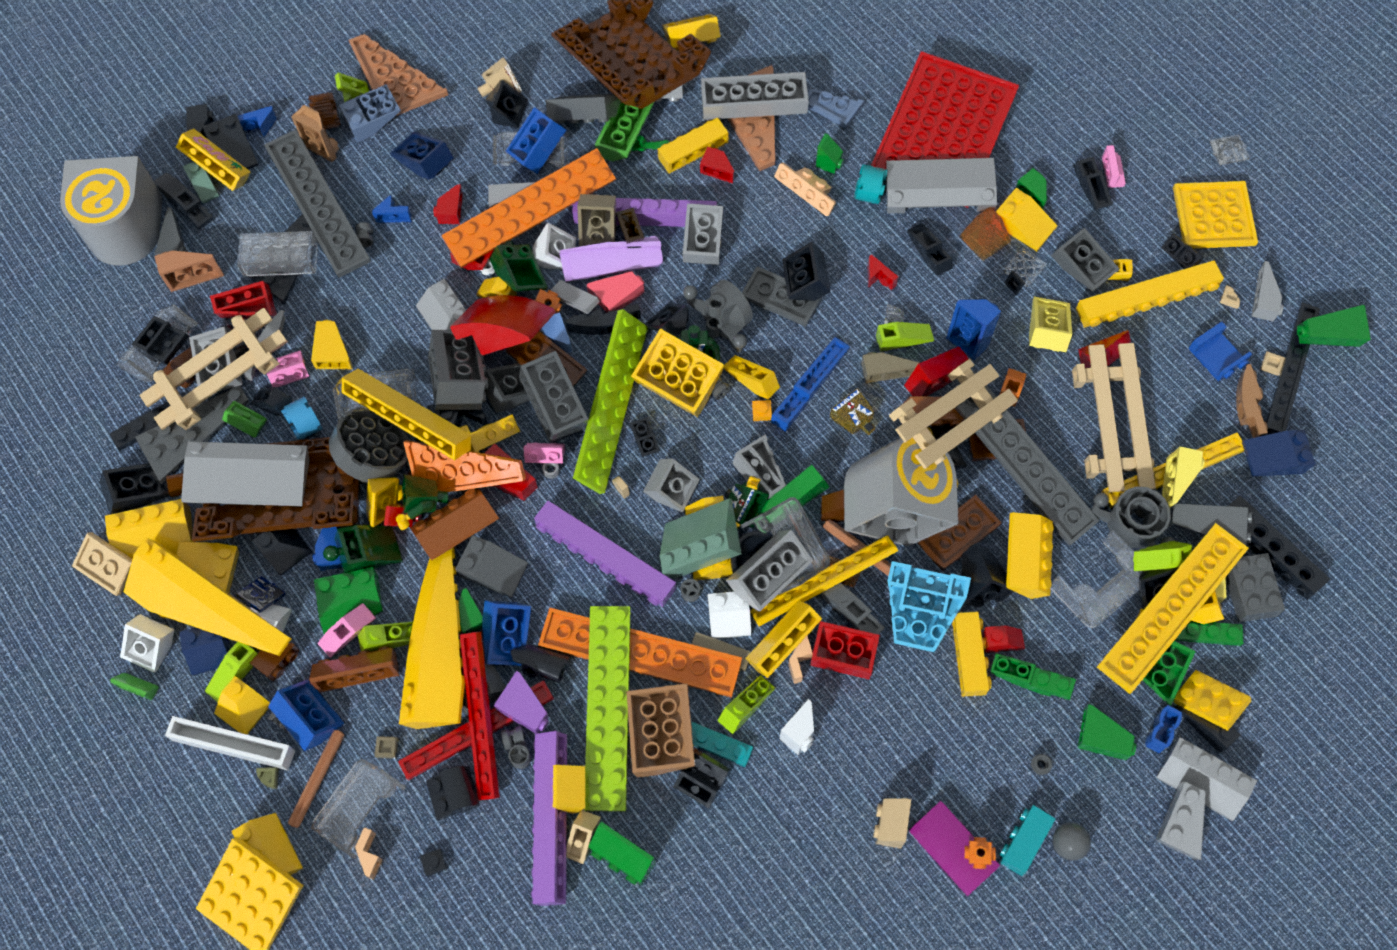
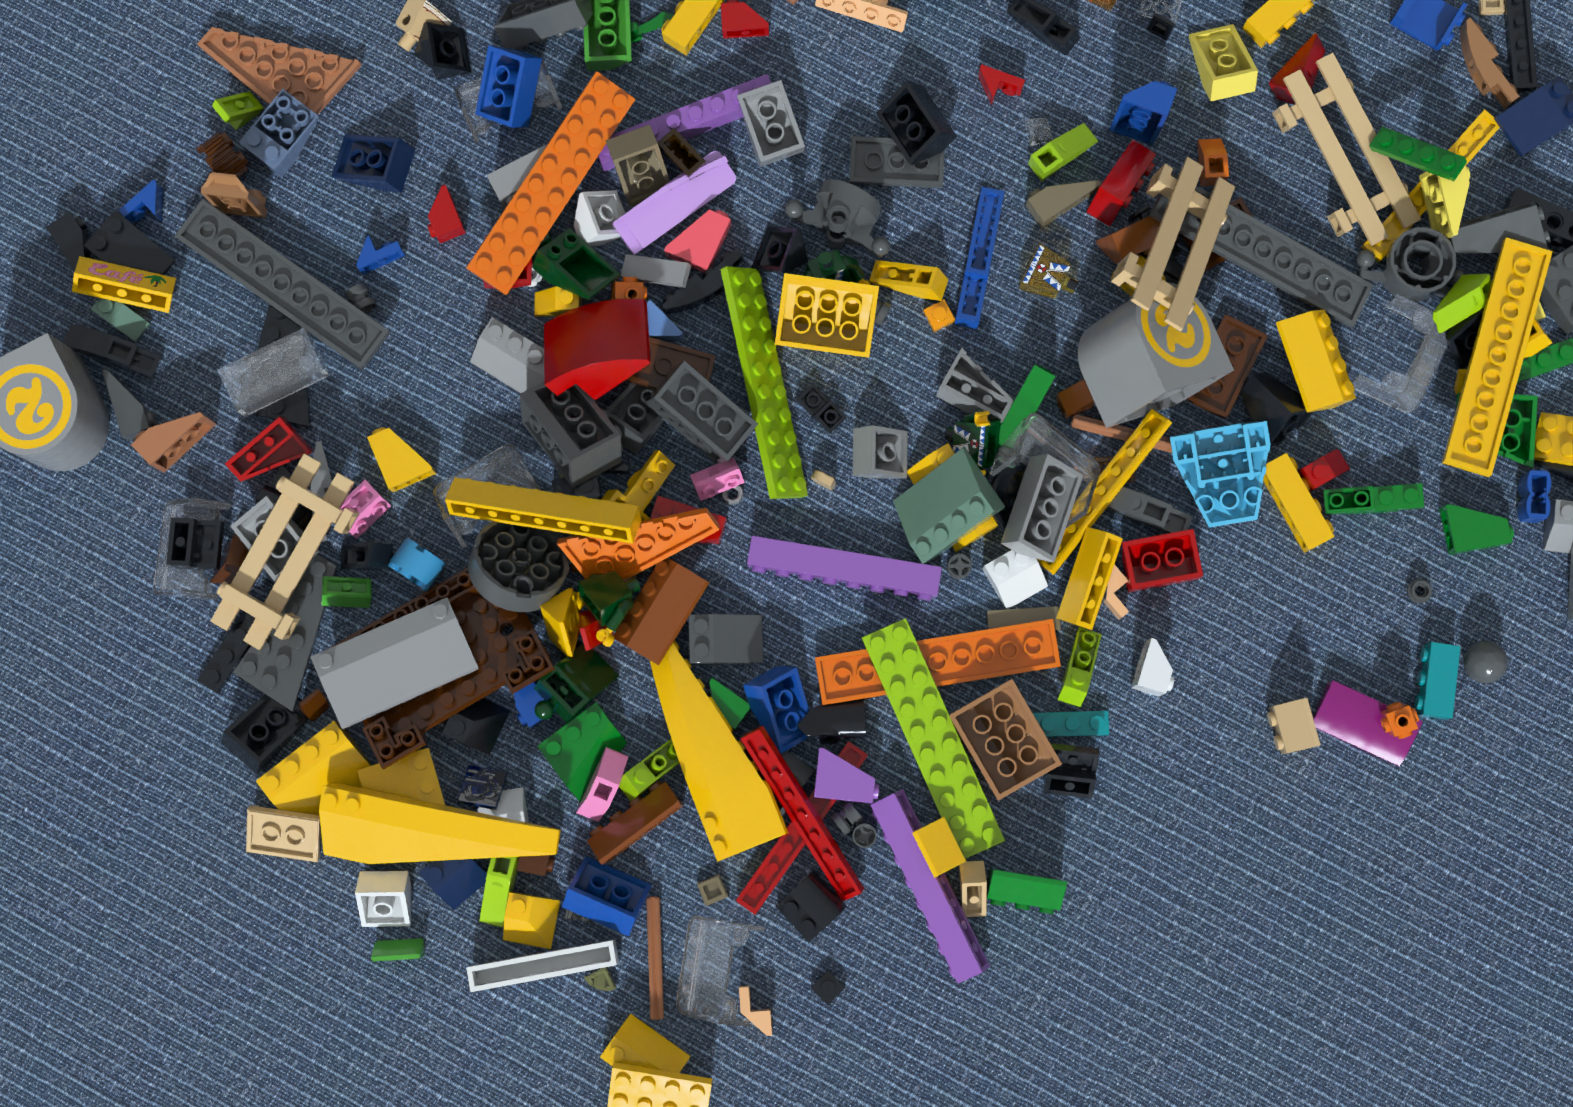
camera: 20 degrees left, 15 degrees up
(1169, 434) = (1418, 153): none -> green plate

